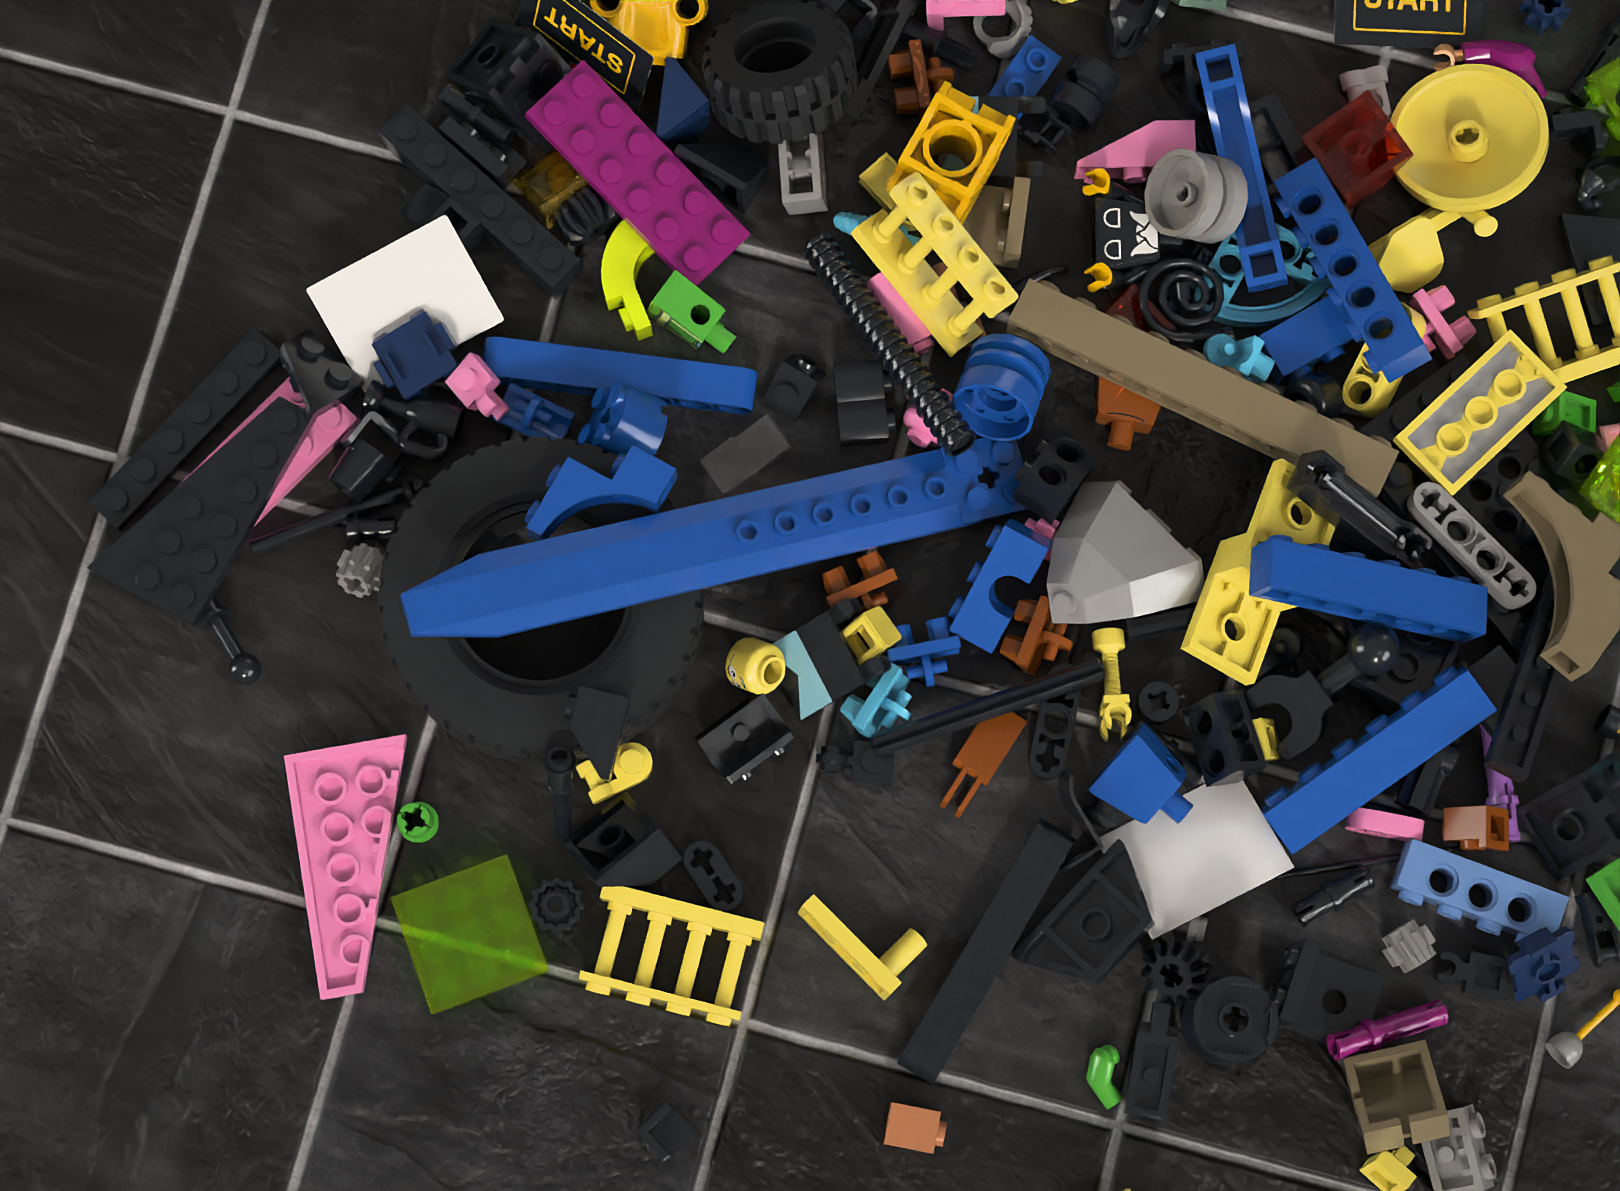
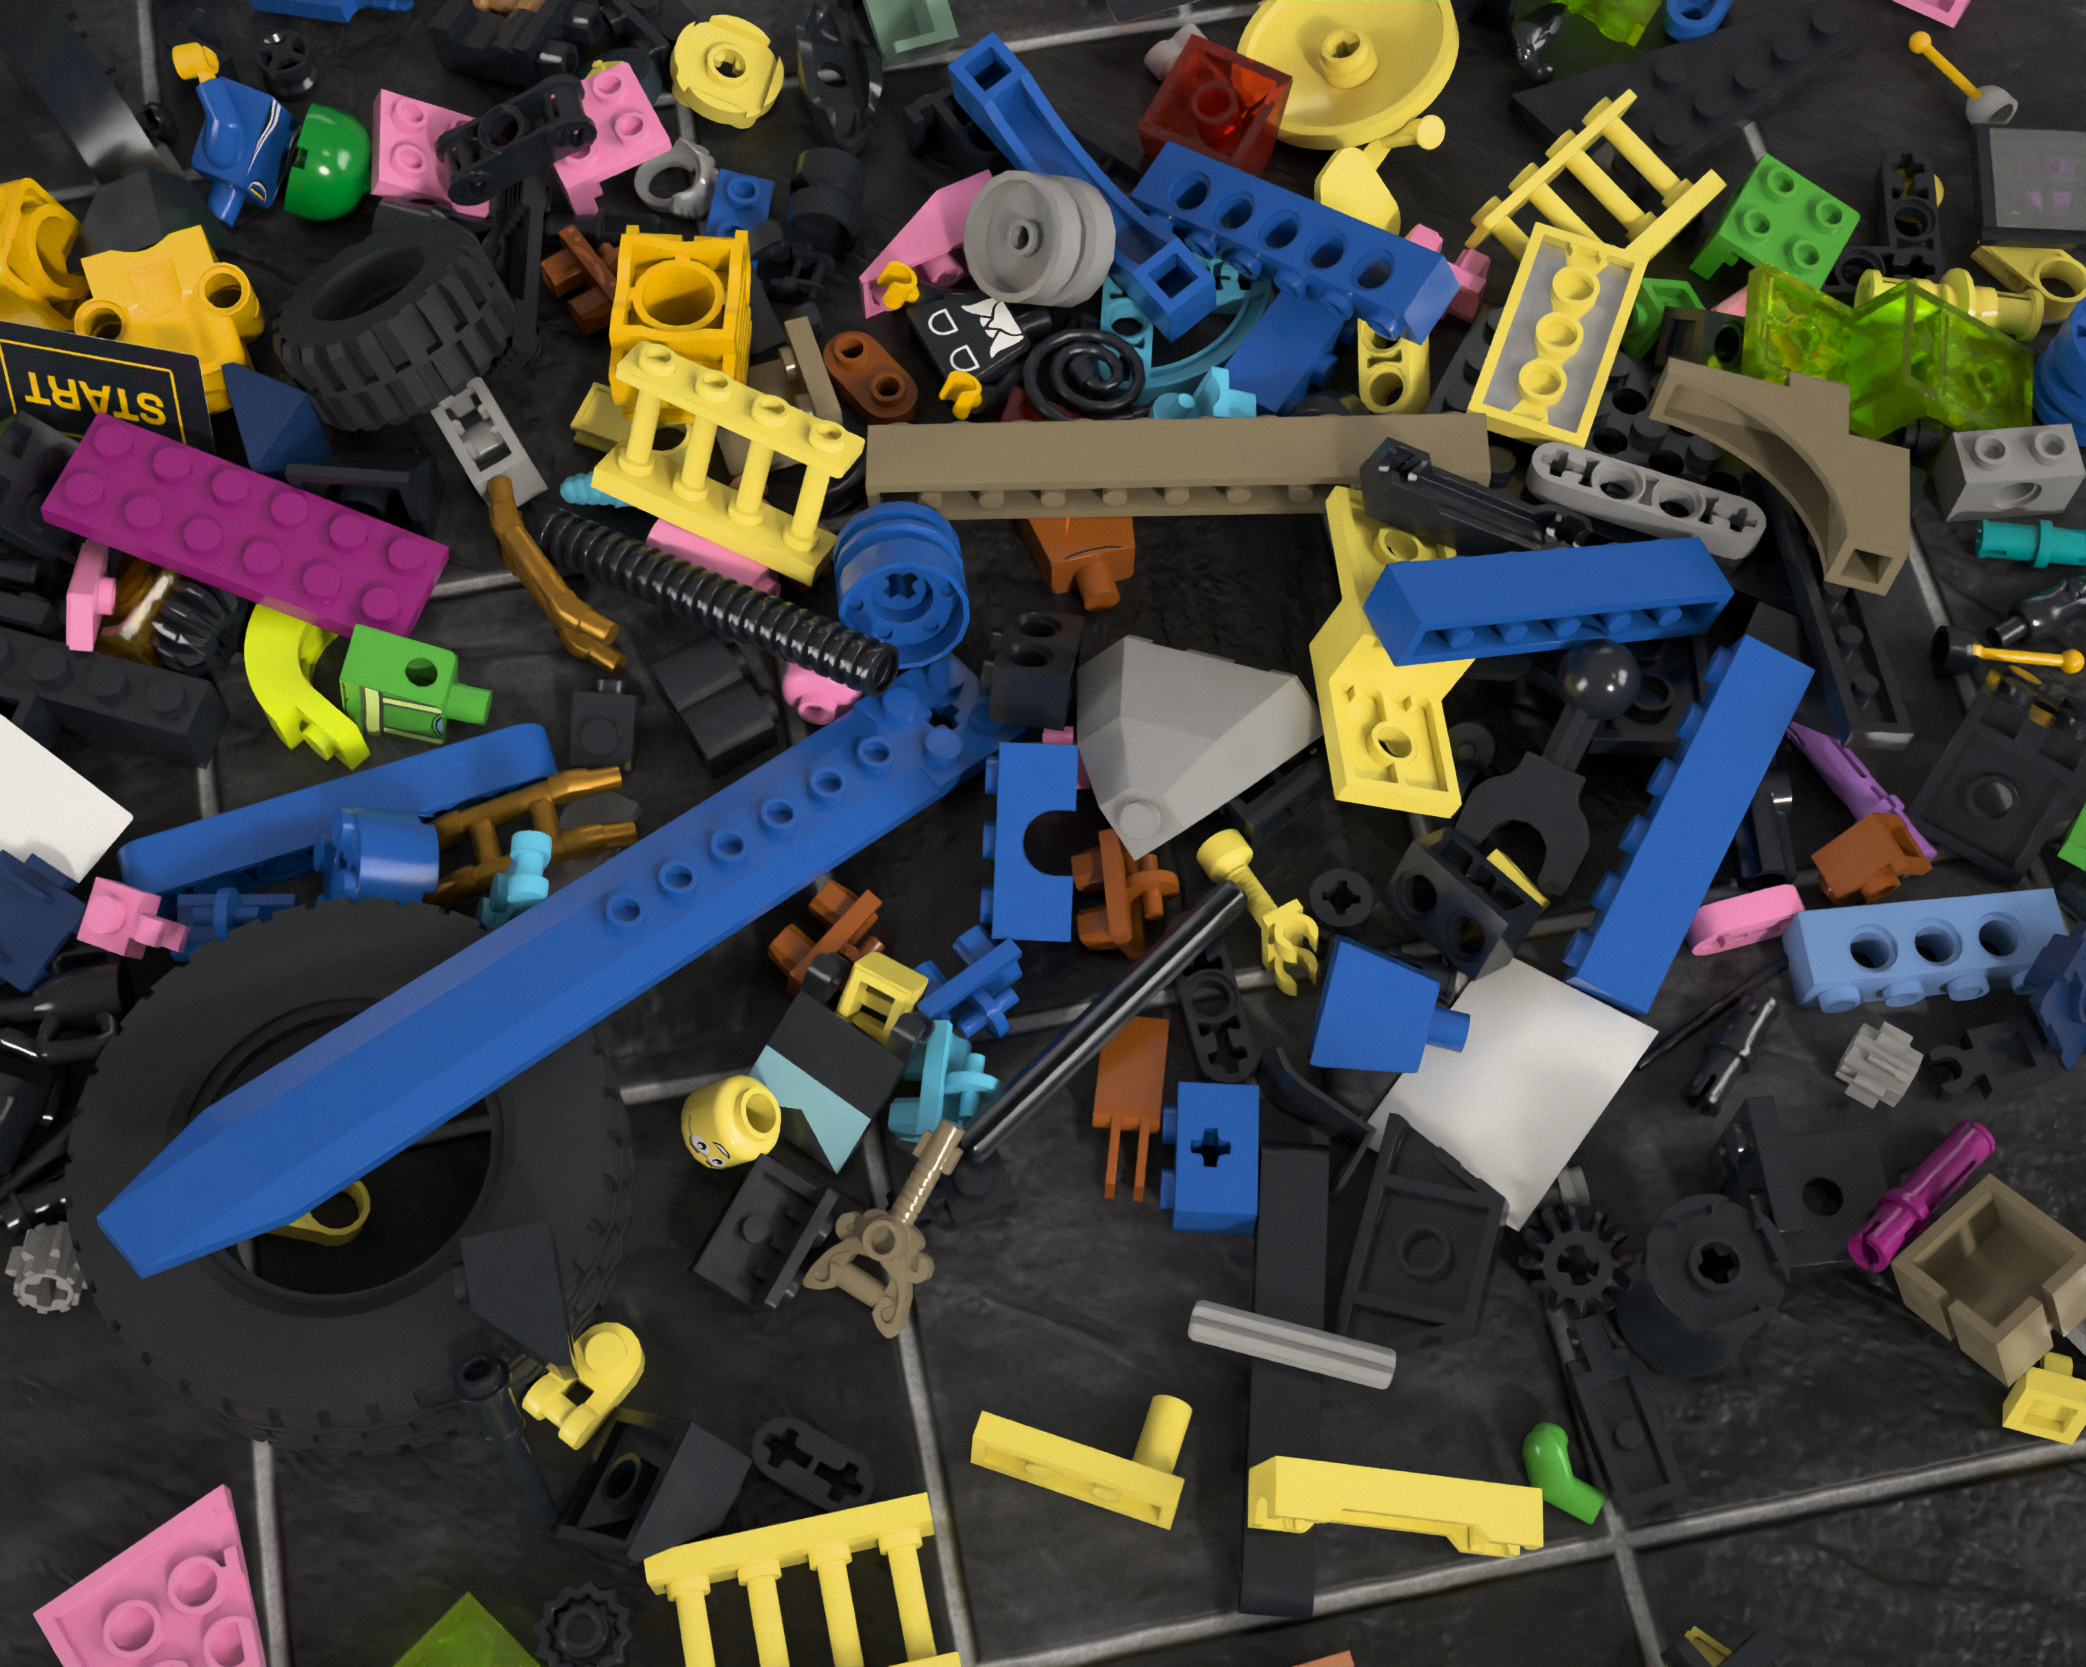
camera: 25 degrees left, 15 degrees down
(418, 834) = (315, 1628): bright green bush -> none
(532, 171) = (89, 596): none -> bright pink plate
(636, 481) = (330, 960): blue arch -> none
(696, 480) = (521, 883): none -> medium azure plate
(729, 453) = (539, 801): none -> pearl gold piece
(802, 316) = (581, 629): none -> pearl gold piece
(811, 773) = (890, 1238): none -> dark tan piece
(994, 941) = (1292, 1344): none -> light grey axle
(1028, 799) = (1219, 1120): none -> blue brick
(1042, 1074) = (1472, 1514): none -> light yellow piece
(1054, 225) = (869, 374): none -> dark orange plate

